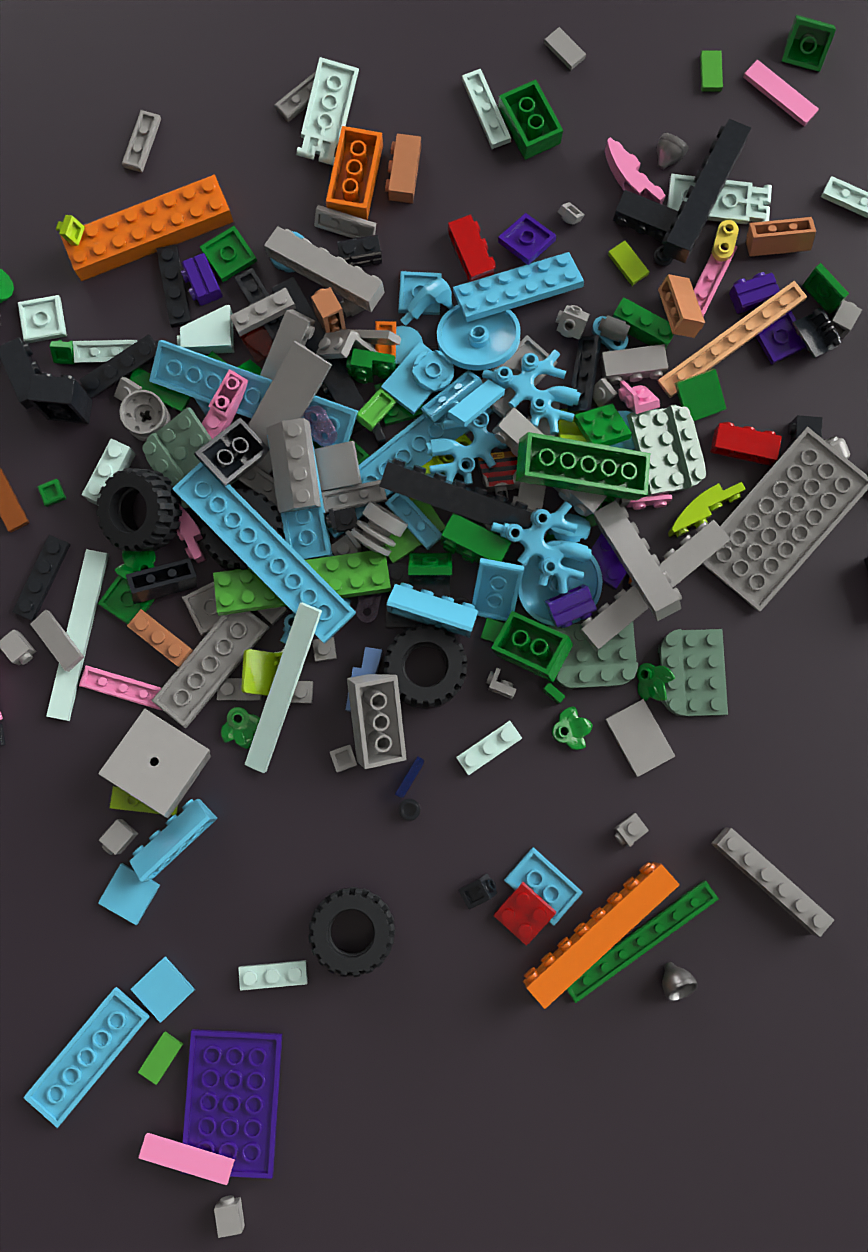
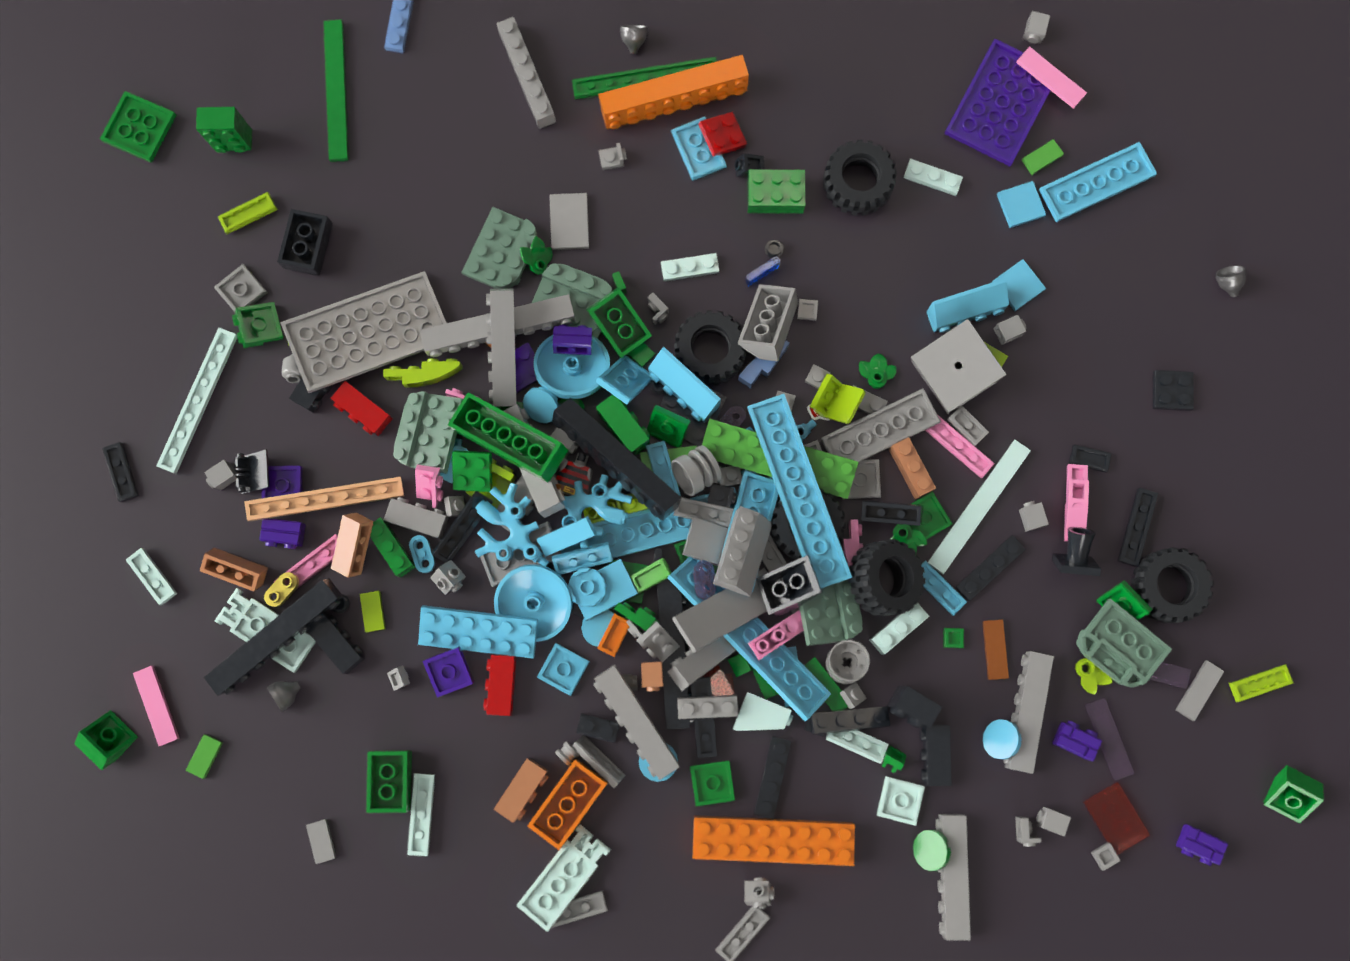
camera: 150 degrees left, 0 degrees up
(57, 640) = (997, 506): light grey tile -> none
(70, 229) = (843, 858): lime tile -> none
(82, 534) = (942, 590): none -> medium azure tile
(119, 710) = (967, 425): none -> light grey plate
(140, 176) = (753, 888): none -> light grey brick
(201, 279) = (746, 769): dark purple brick -> none
(283, 687) = (830, 379): light aqua tile -> none
(379, 337) = (627, 641): light grey tile -> none
(380, 216) = (567, 753): none -> light grey wheel
(434, 292) = (552, 657): medium azure animal -> none
(435, 874) = (776, 191): none -> green brick
(534, 545) = (570, 382): medium azure plant -> none
(575, 729) = (616, 249): green plate -> none
(613, 328) = (418, 552): dark grey brick -> none
(625, 170) = (331, 695): bright pink slope -> none
(701, 394) = (375, 465): green tile -> none
(825, 289) = (224, 504): green tile -> none

